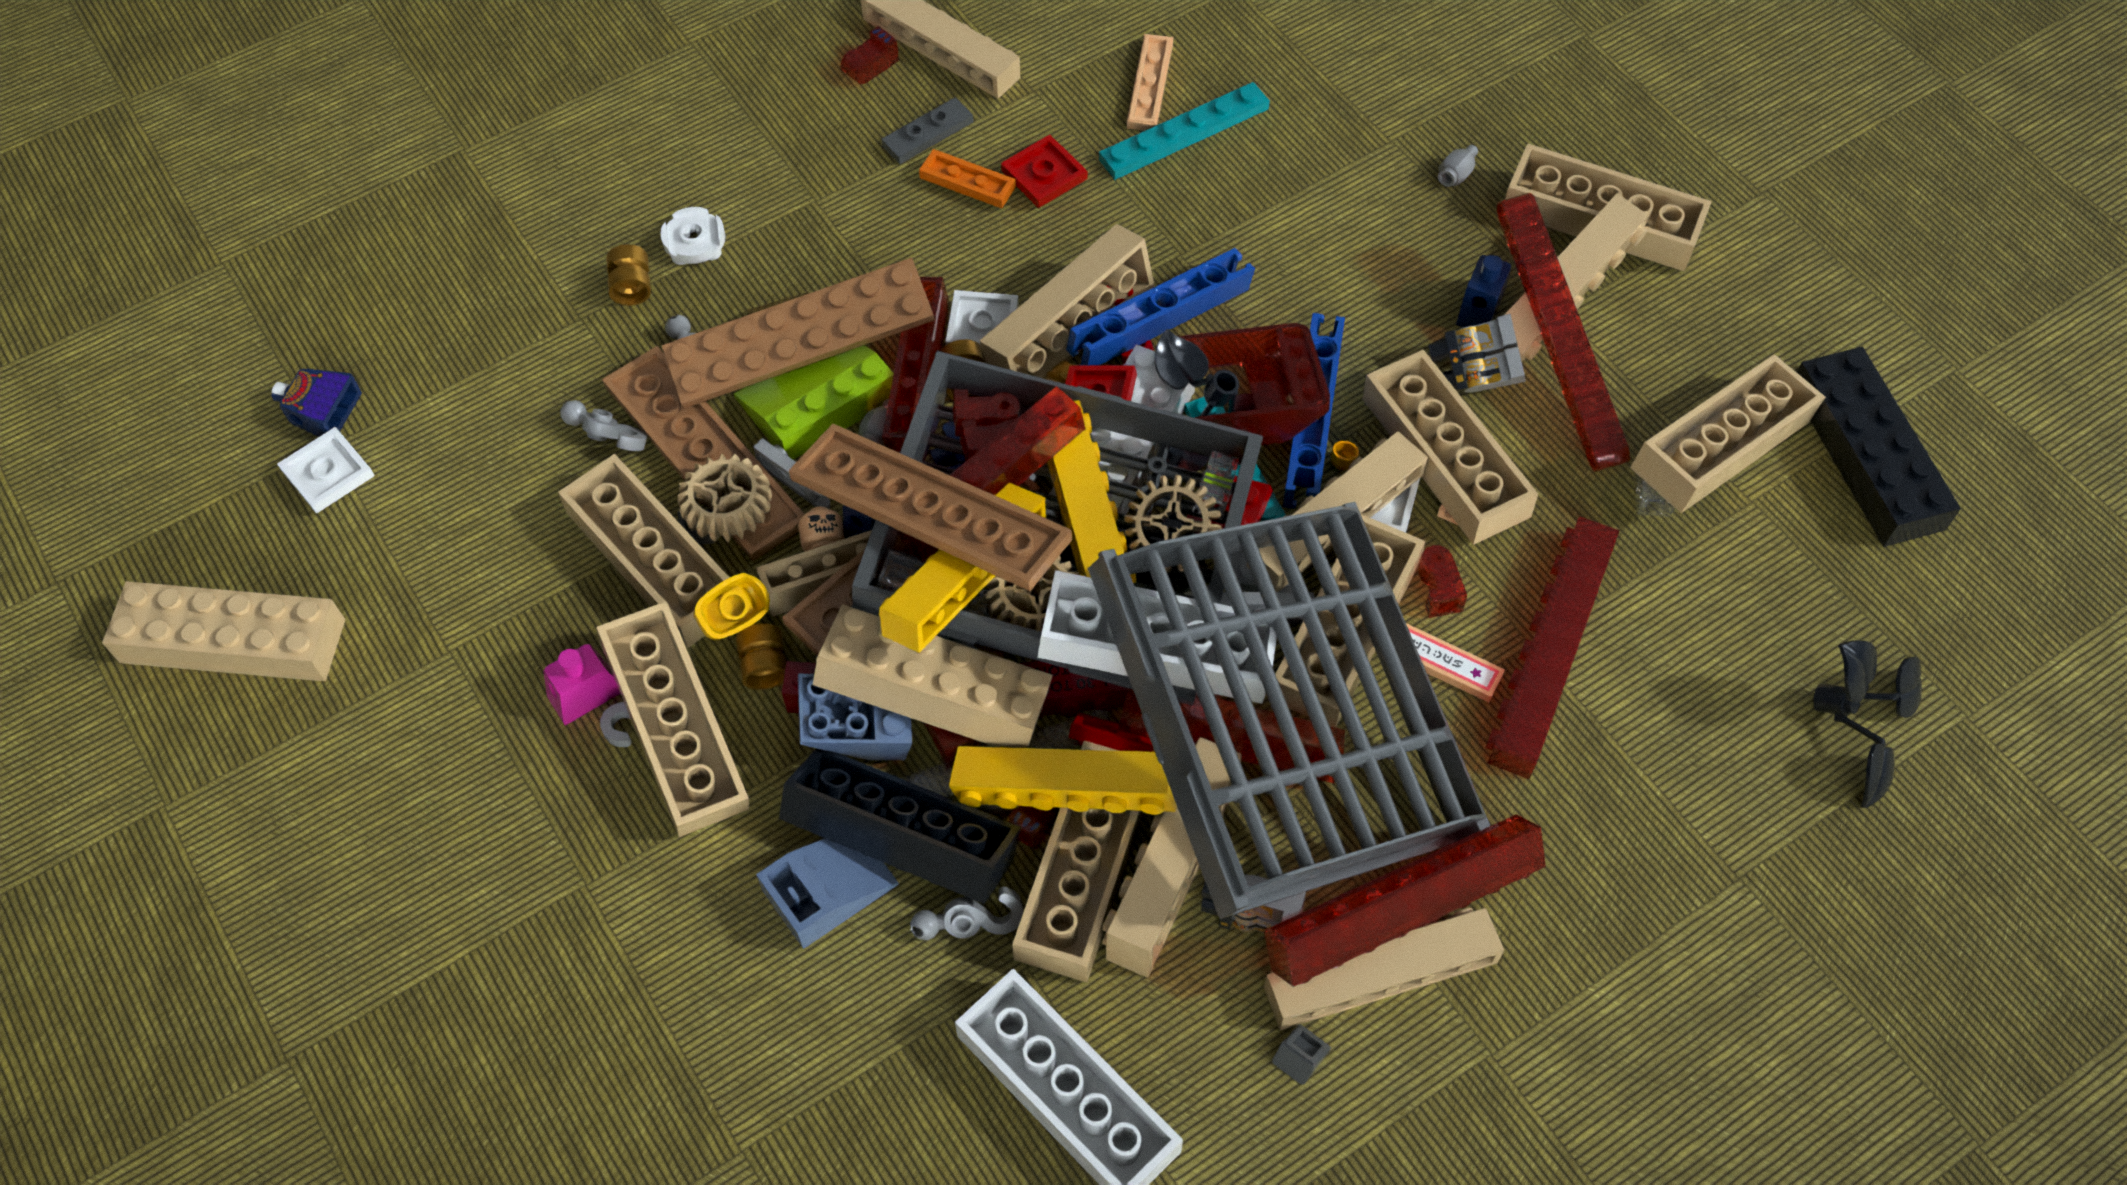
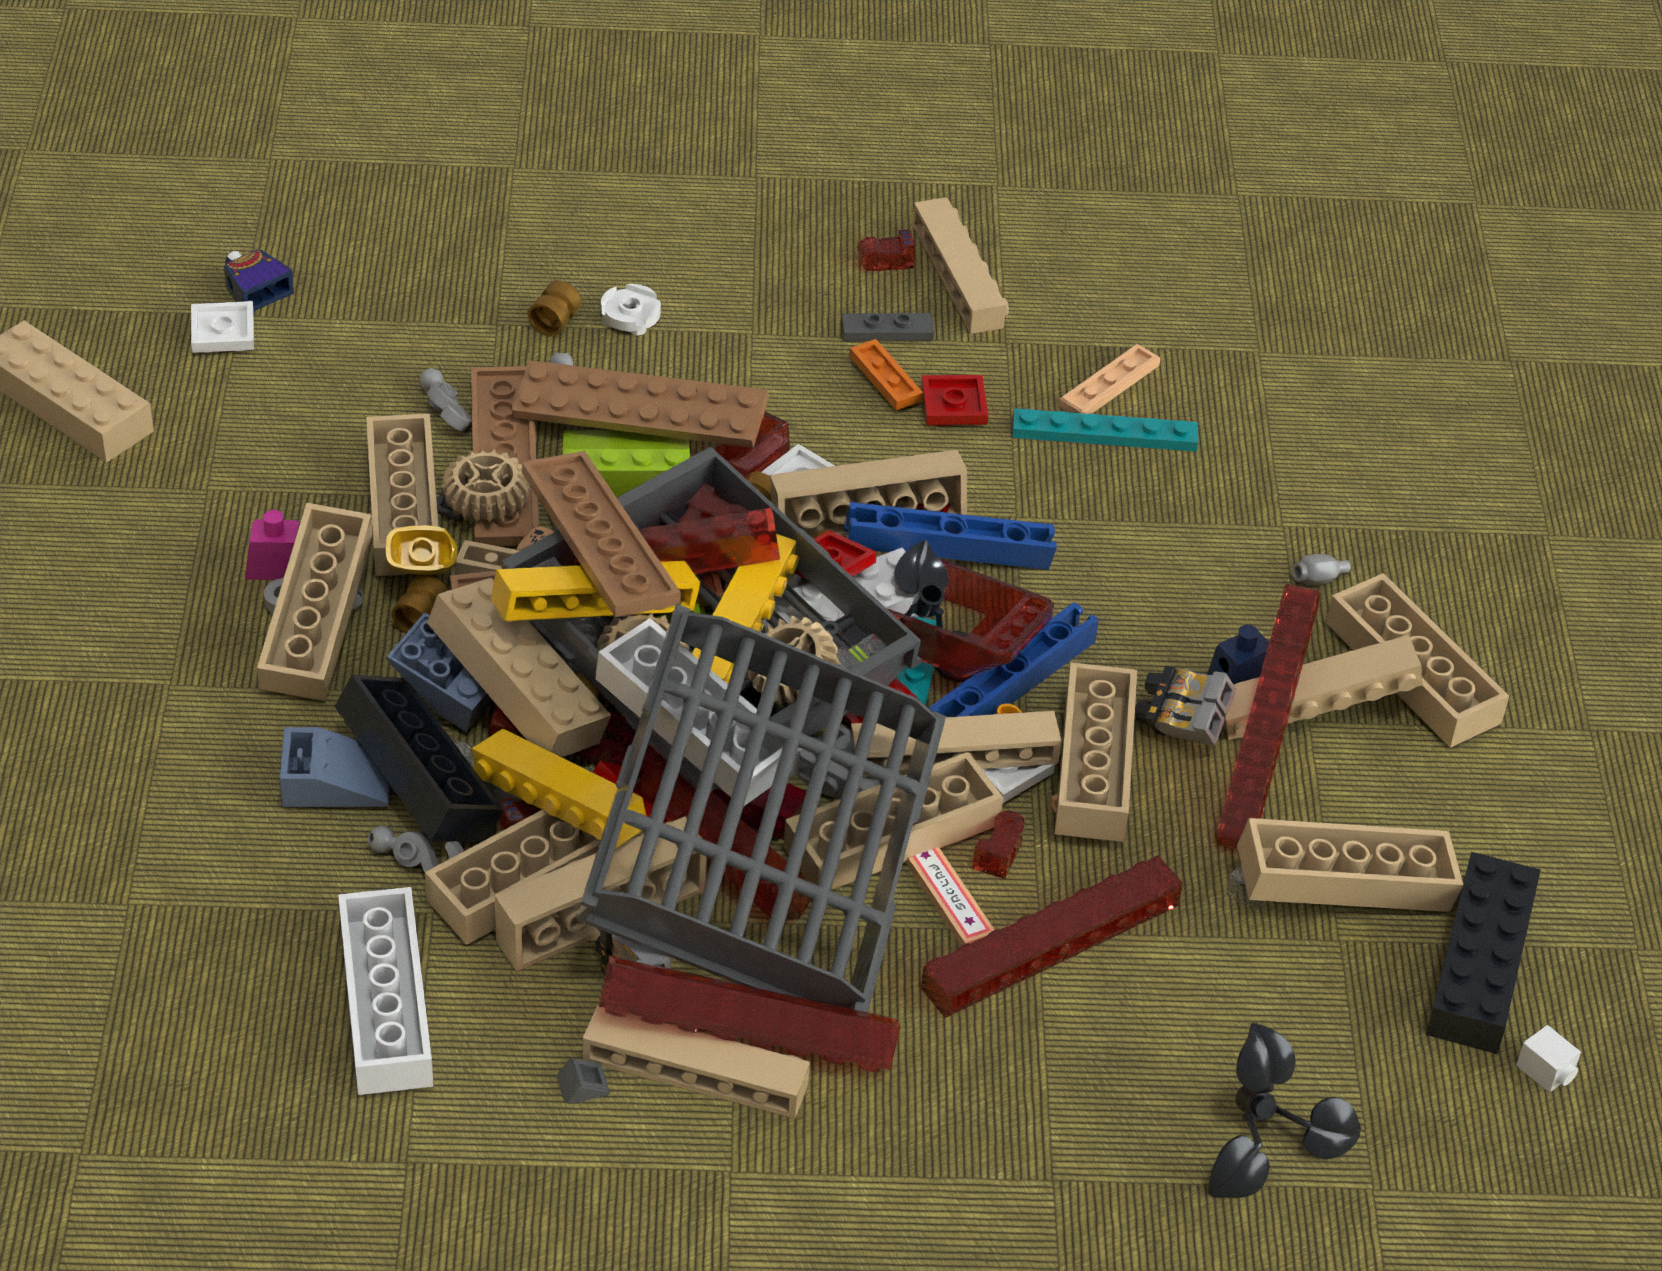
camera: 30 degrees right, 15 degrees down
(1995, 512) = (1549, 1059): none -> white brick

